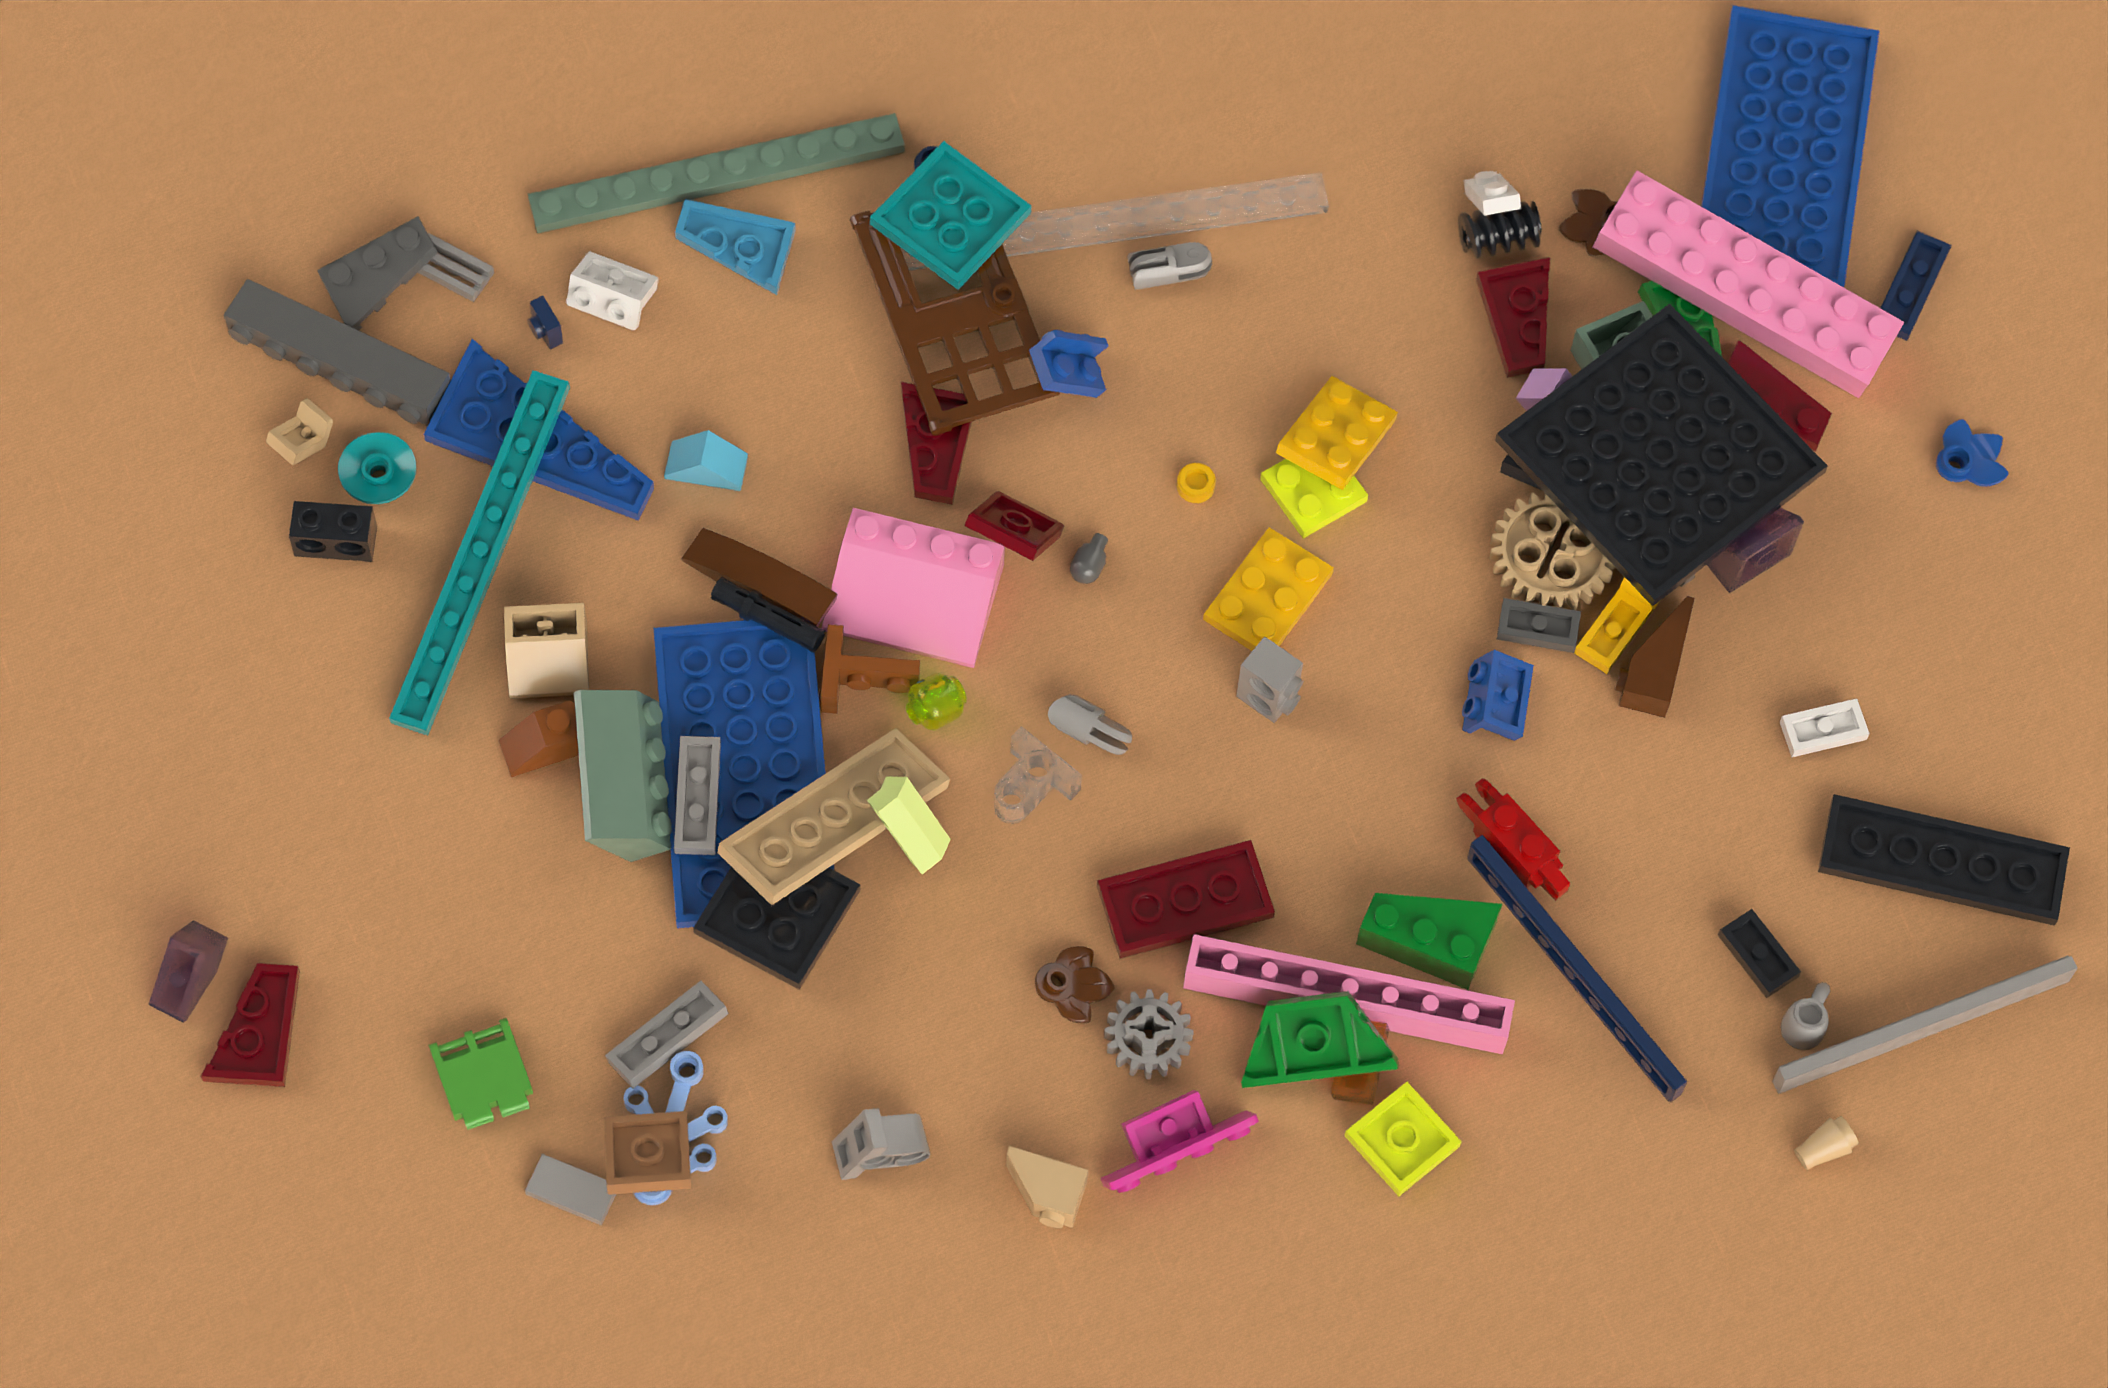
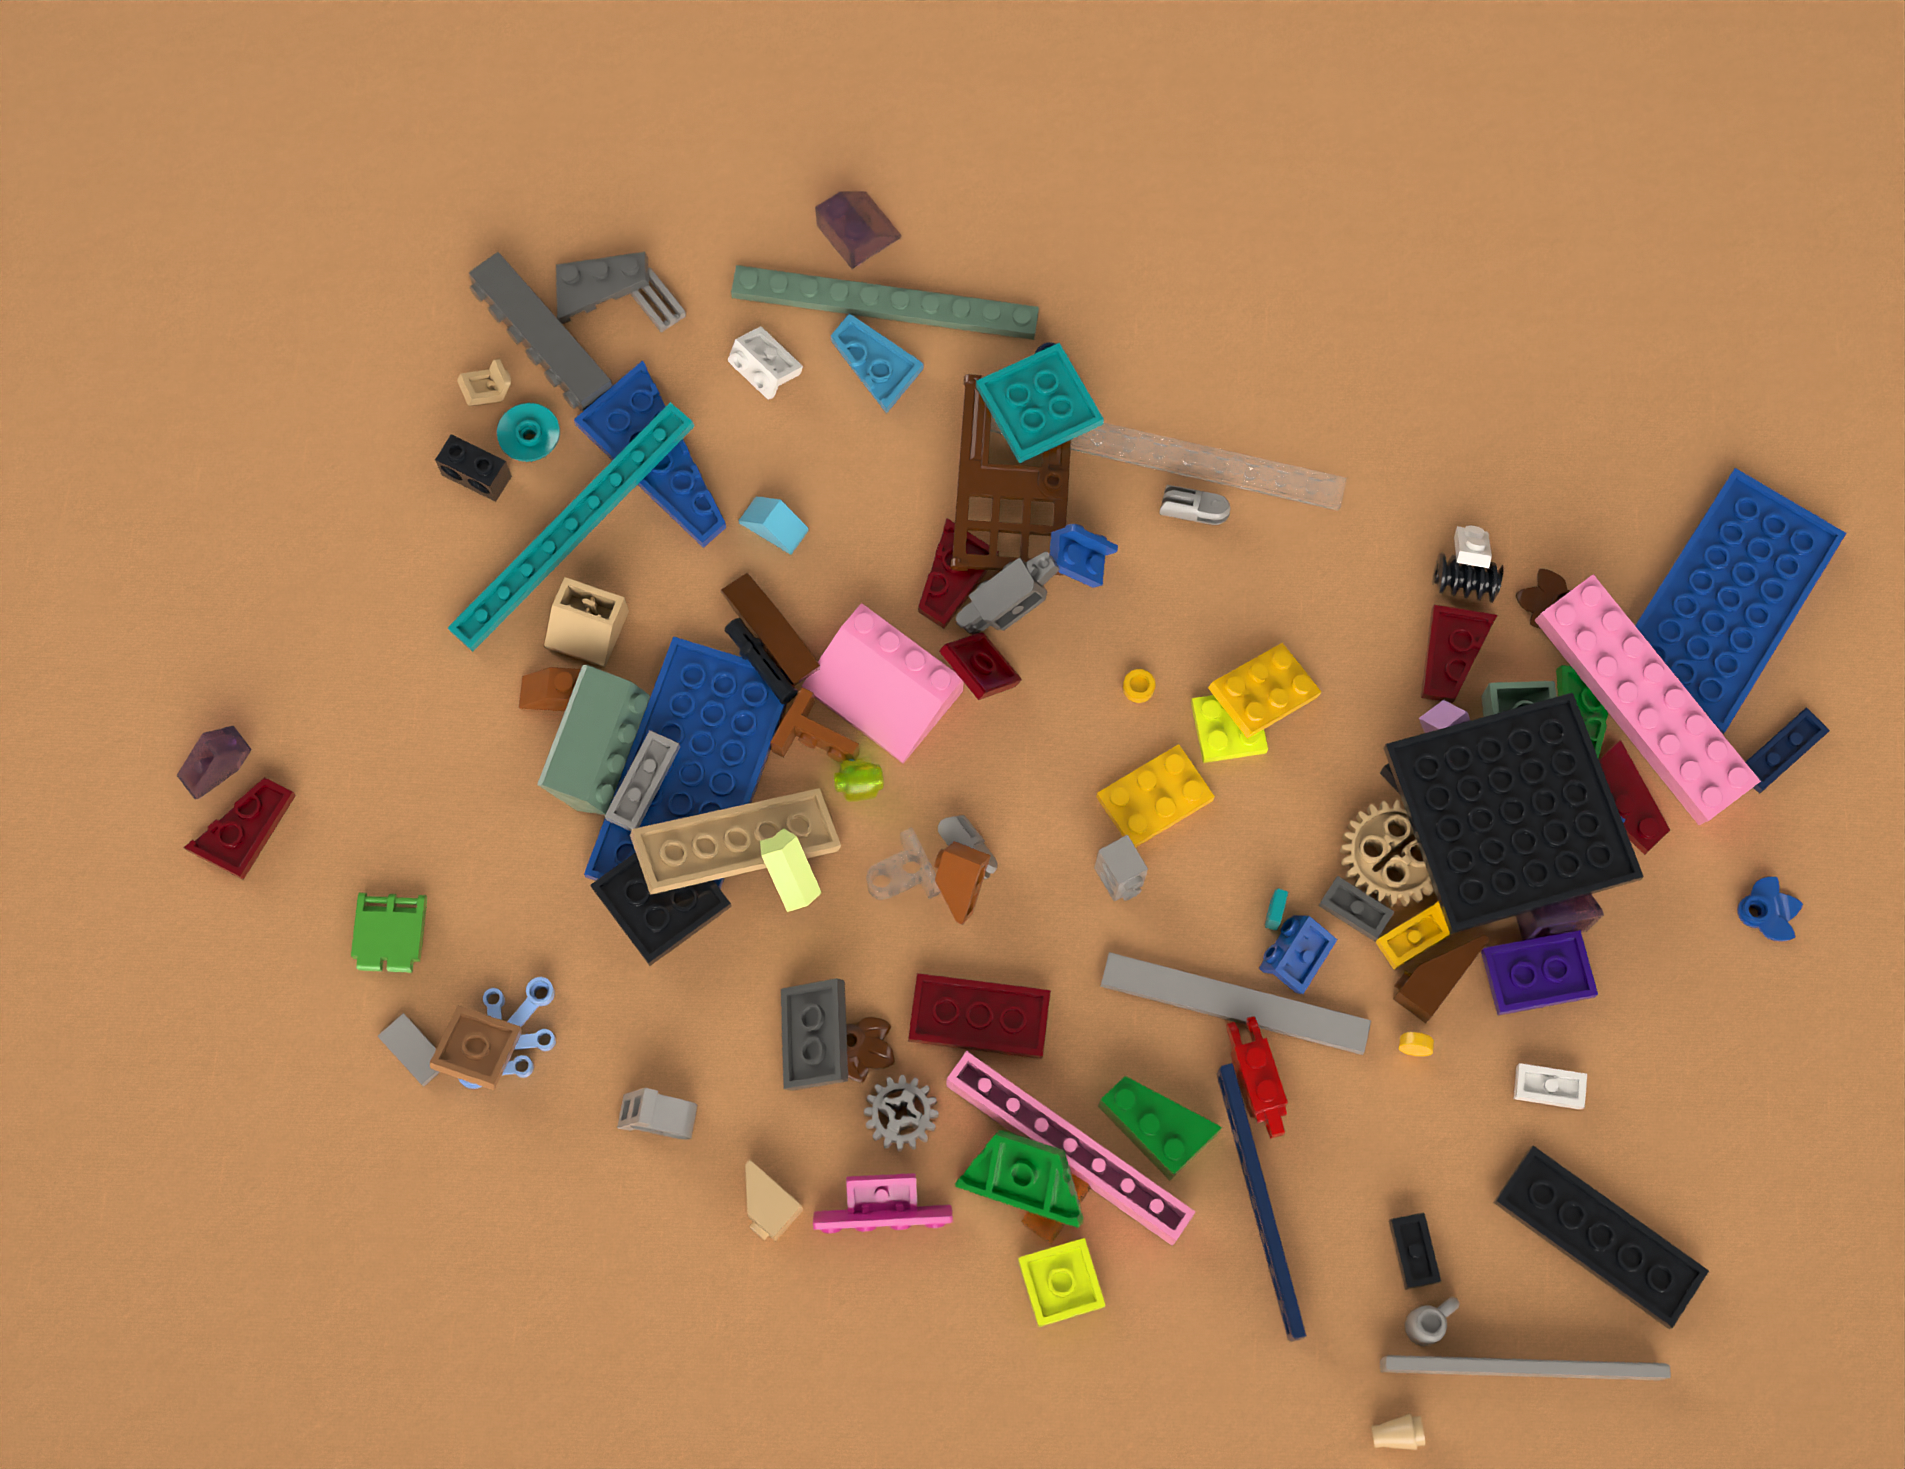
camera: 25 degrees right, 5 degrees up
(544, 323) = (701, 368): dark blue plate -> none
(644, 101) = (855, 226): none -> slope
(666, 1034) = (537, 958): light grey plate -> none
(1011, 437) = (1008, 594): none -> hinge
(1016, 989) = (814, 1034): none -> dark grey plate
(1089, 560) = (1027, 715): dark grey cylinder -> none
(1100, 757) = (960, 878): none -> dark orange slope
(1453, 775) = (1236, 1003): none -> light grey tile
(1454, 659) = (1276, 909): none -> teal tile
(1665, 740) = (1416, 1044): none -> yellow tile
(1760, 615) = (1539, 972): none -> dark purple plate

